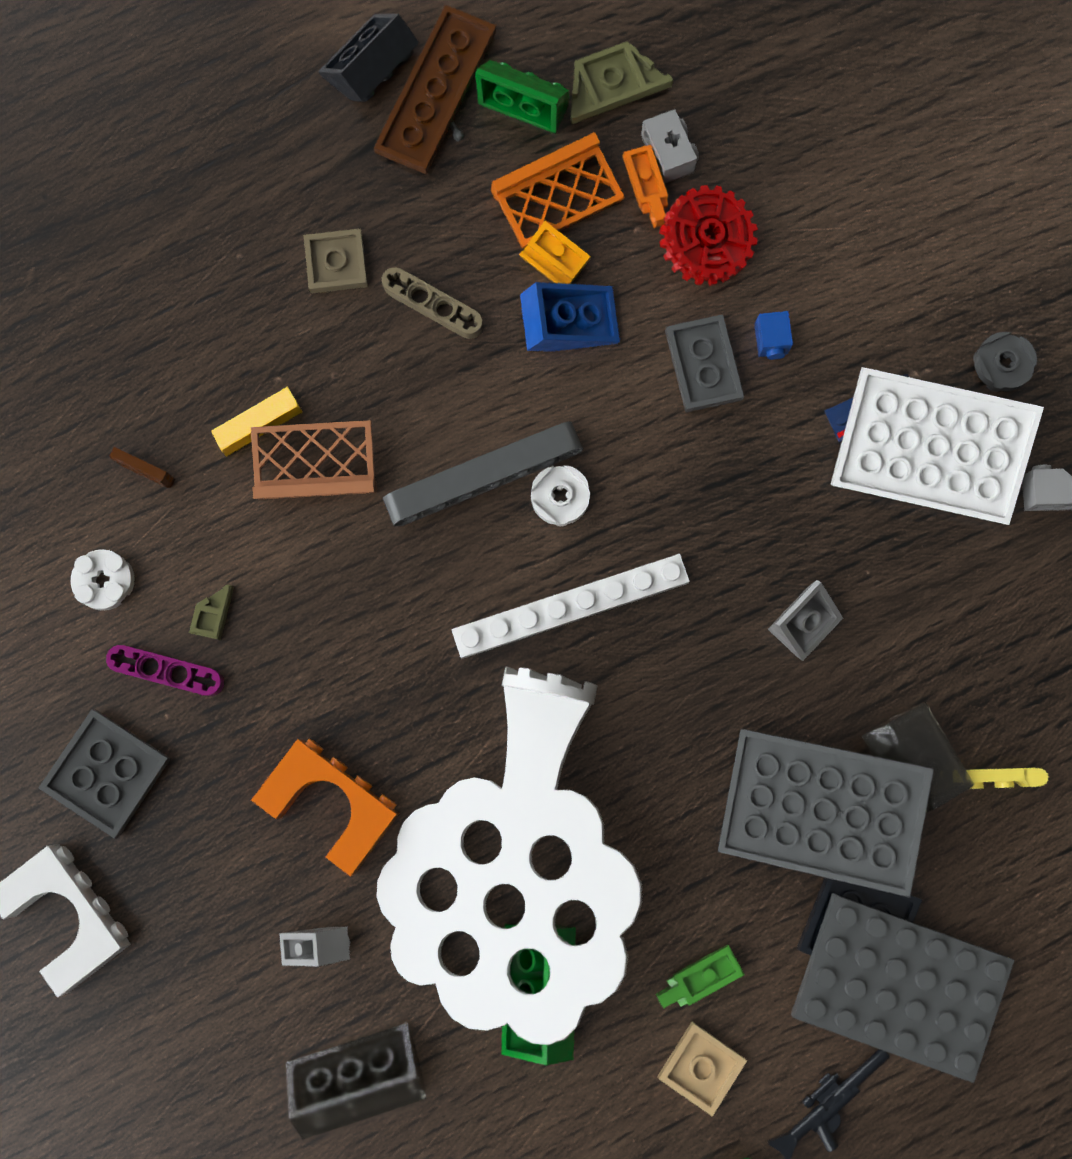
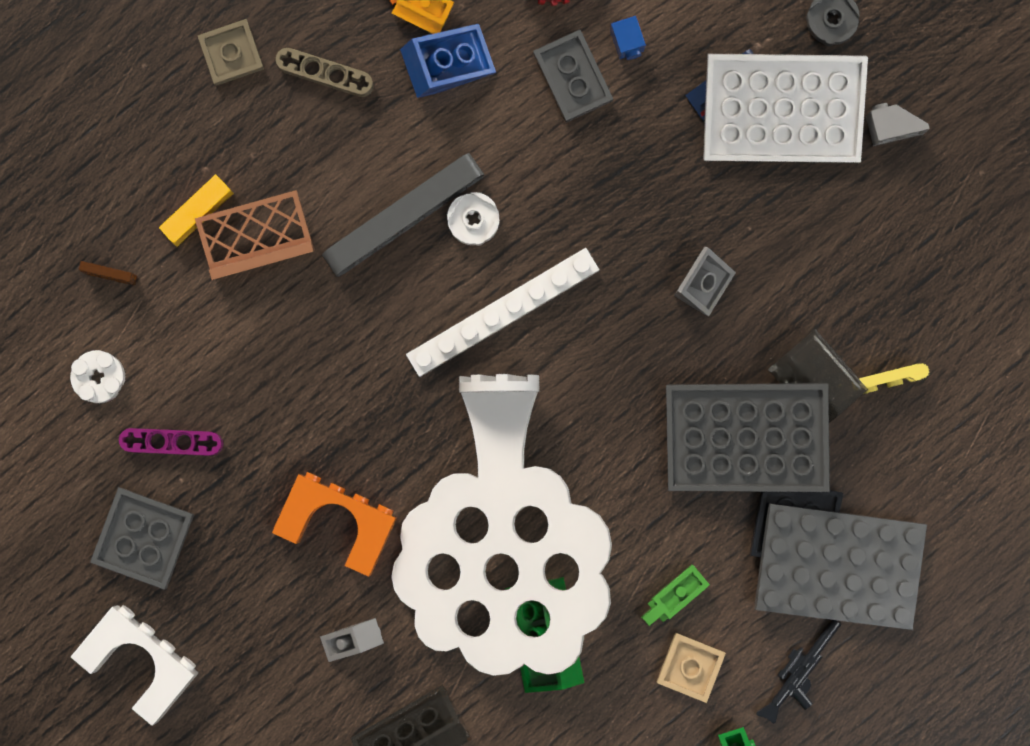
camera: 10 degrees left, 5 degrees up
(211, 614) = (198, 385): olive tile -> none

